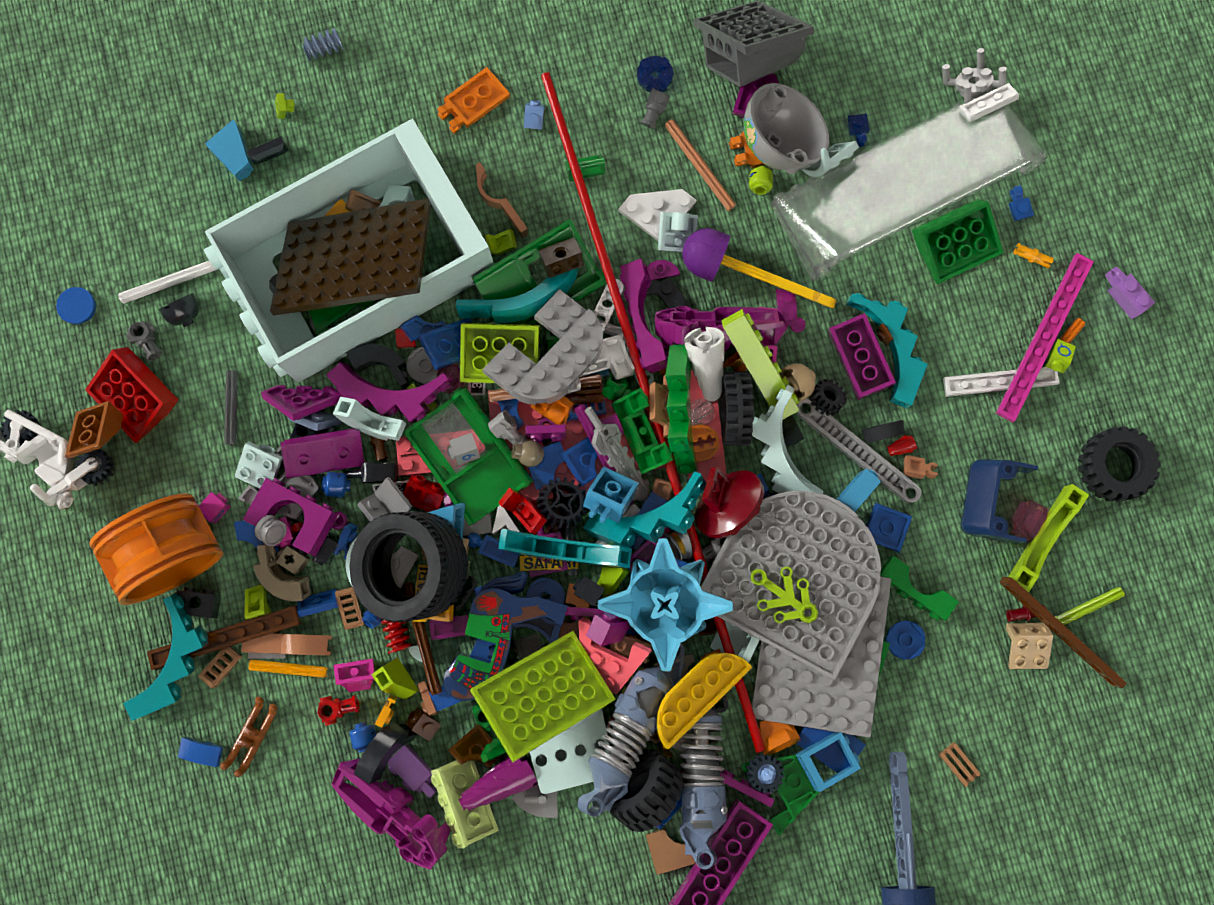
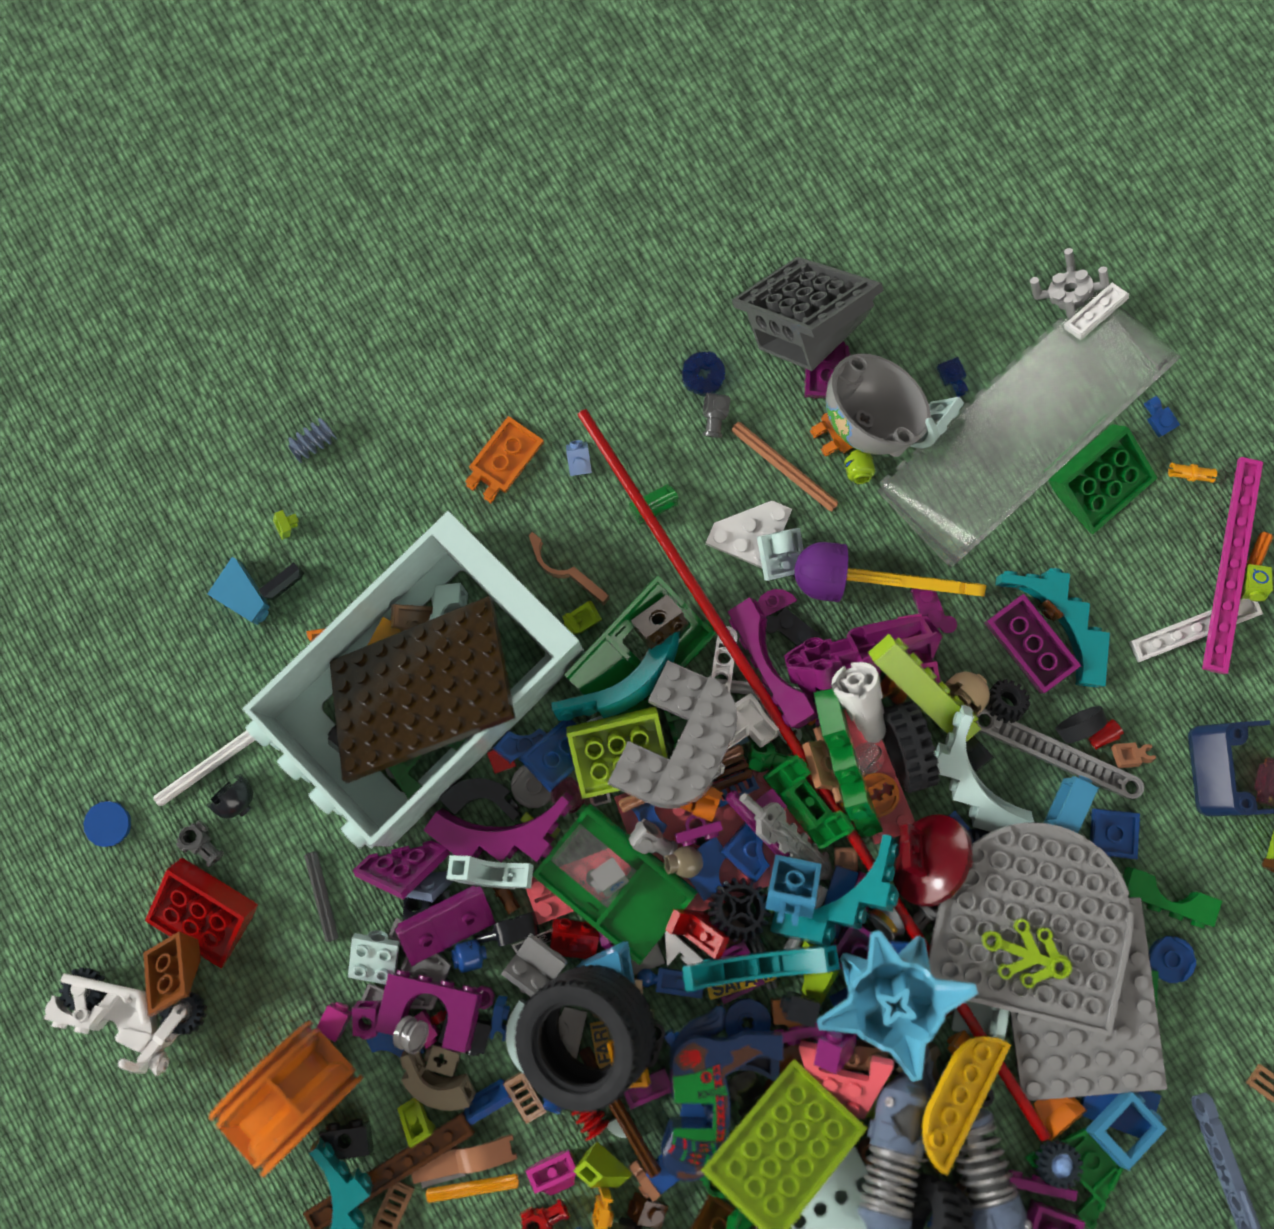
camera: 10 degrees left, 0 degrees up
(231, 512) = (365, 1009): none -> magenta brick

